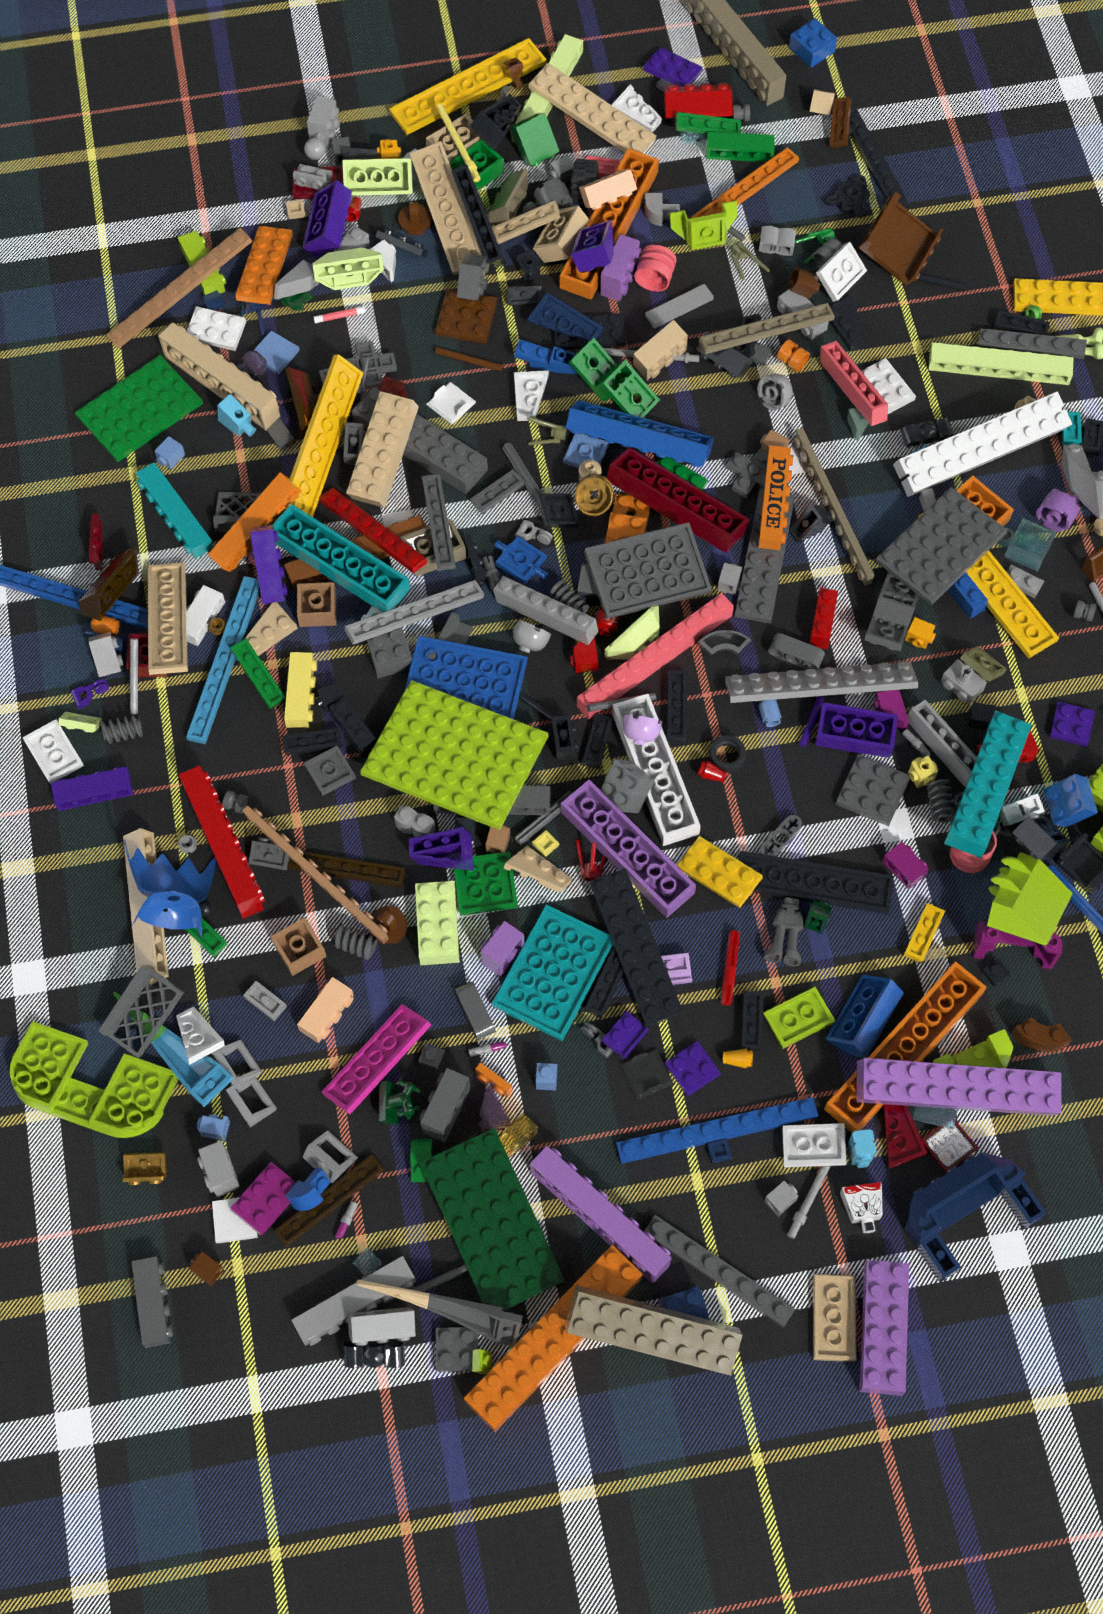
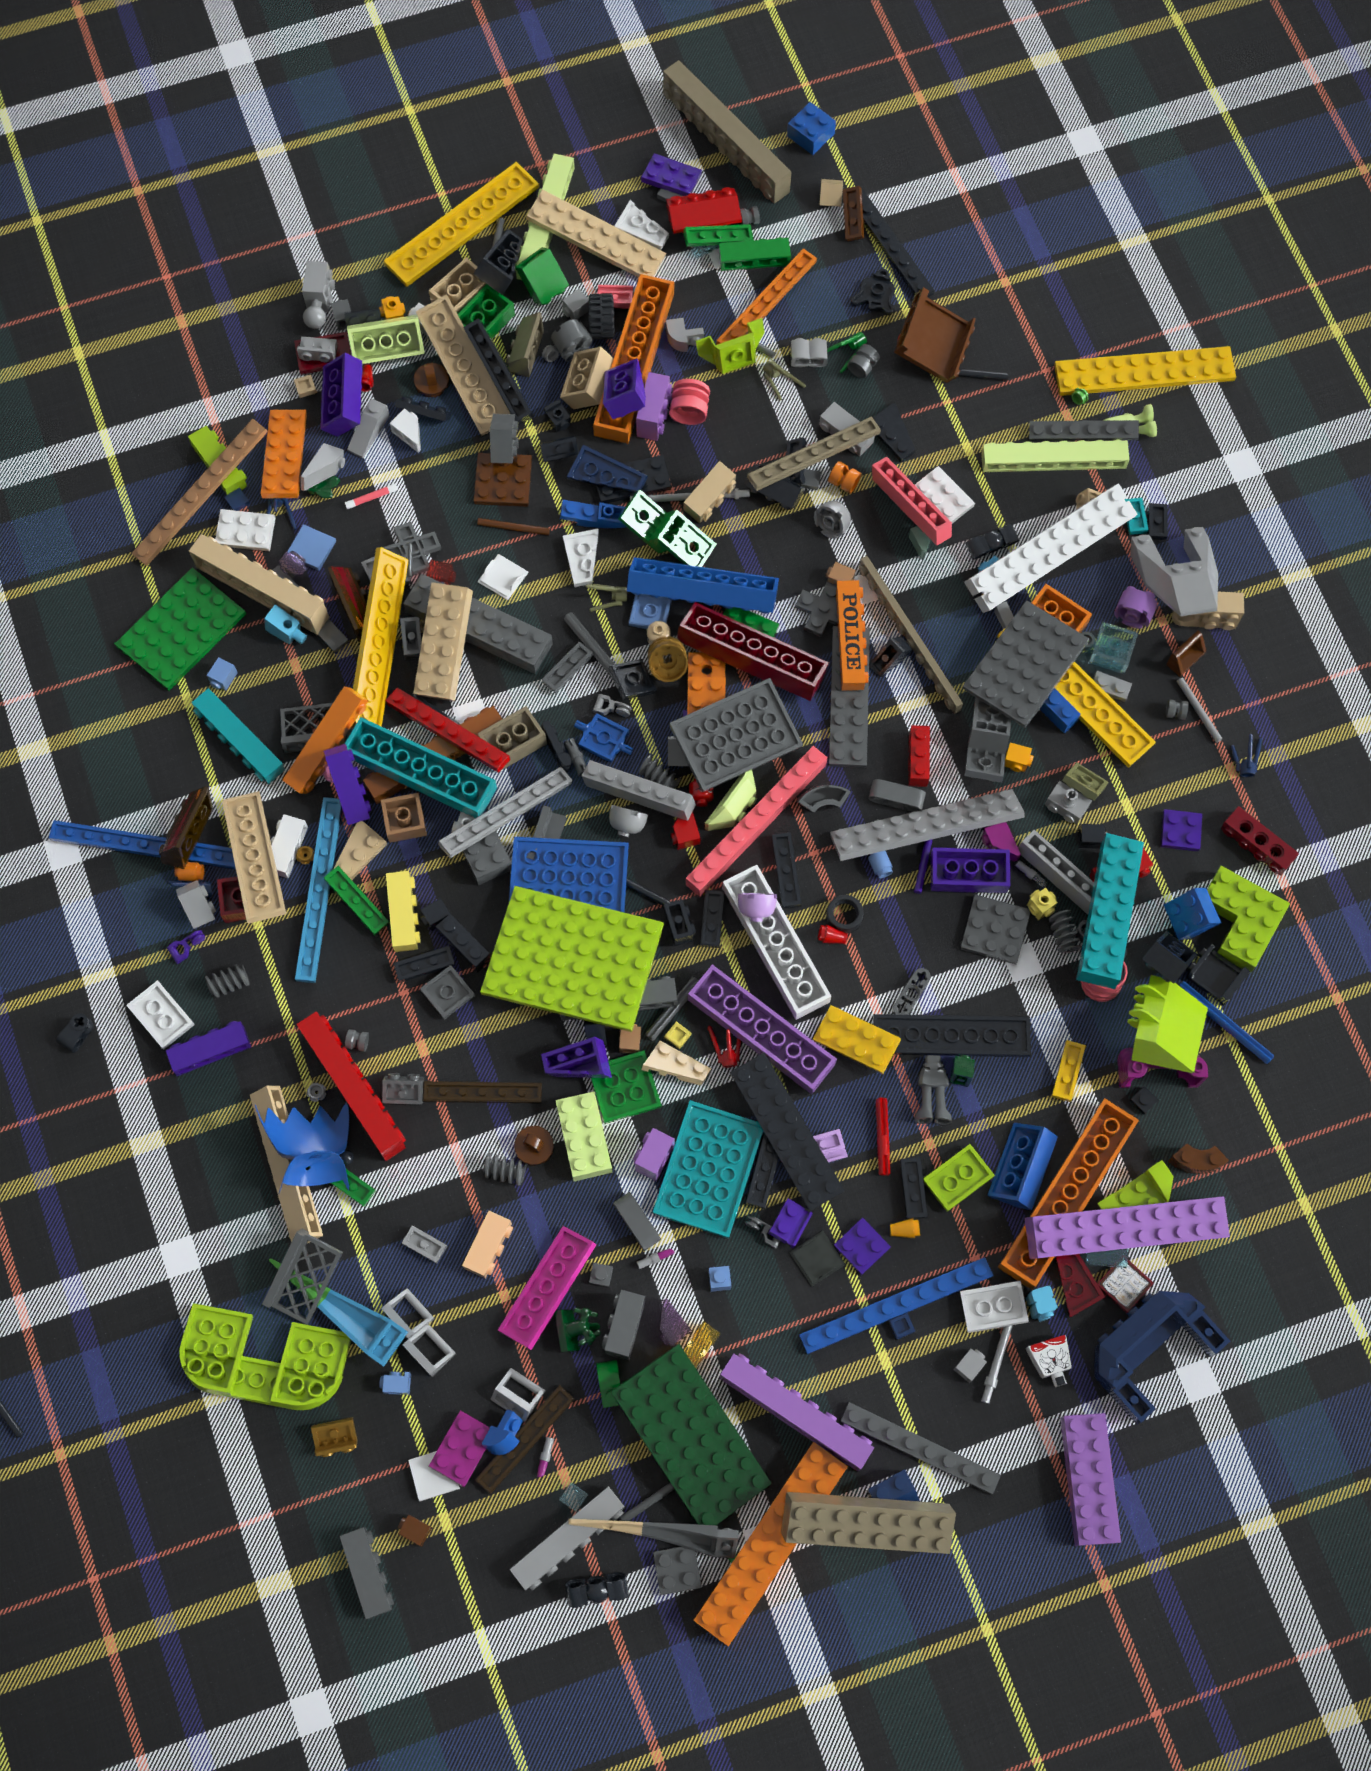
camera: 10 degrees left, 5 degrees up
(80, 721) = (182, 978): yellowish green plate -> none
(96, 542) = (163, 782): dark red wing -> none
(133, 676) = (230, 923): light grey bar -> none
(197, 1035) = (363, 1292): white wing -> none
(219, 1169) = (410, 1427): light grey brick -> none
(298, 946) = (448, 1183): medium nougat brick -> none
(321, 878) = (447, 1100): medium nougat plate -> none
(348, 268) = (372, 445): yellowish green wedge -> none
(381, 1325) = (599, 1560): brick -> none
(412, 823) = (538, 1034): light grey brick -> none
(438, 522) = (514, 713): dark grey plate -> none
(472, 166) = (479, 314): light yellow bar -> none
(481, 1361) = (704, 1578): lime plate -> none
(499, 1085) = (659, 1287): orange plate -> none
(513, 69) = (507, 200): reddish brown piece -> none
(527, 221) = (549, 369): tan plate -> none
(608, 189) = (628, 323): light nougat brick -> none
(608, 704) = (718, 881): dark grey bar -> none
(626, 786) = (751, 965): dark grey brick -> none
(679, 306) = (719, 438): light grey tile -> none
(729, 578) = (818, 726): light grey brick -> none
(803, 282) = (843, 397): reddish brown brick -> none
(834, 1317) = (1039, 1476): tan tile -> none
(841, 271) = (879, 379): white plate -> none
(905, 865) = (1039, 1003): magenta brick -> none
(1020, 809) = (1146, 929): white brick -> none
(1021, 324) = (1069, 410): black plate -> none

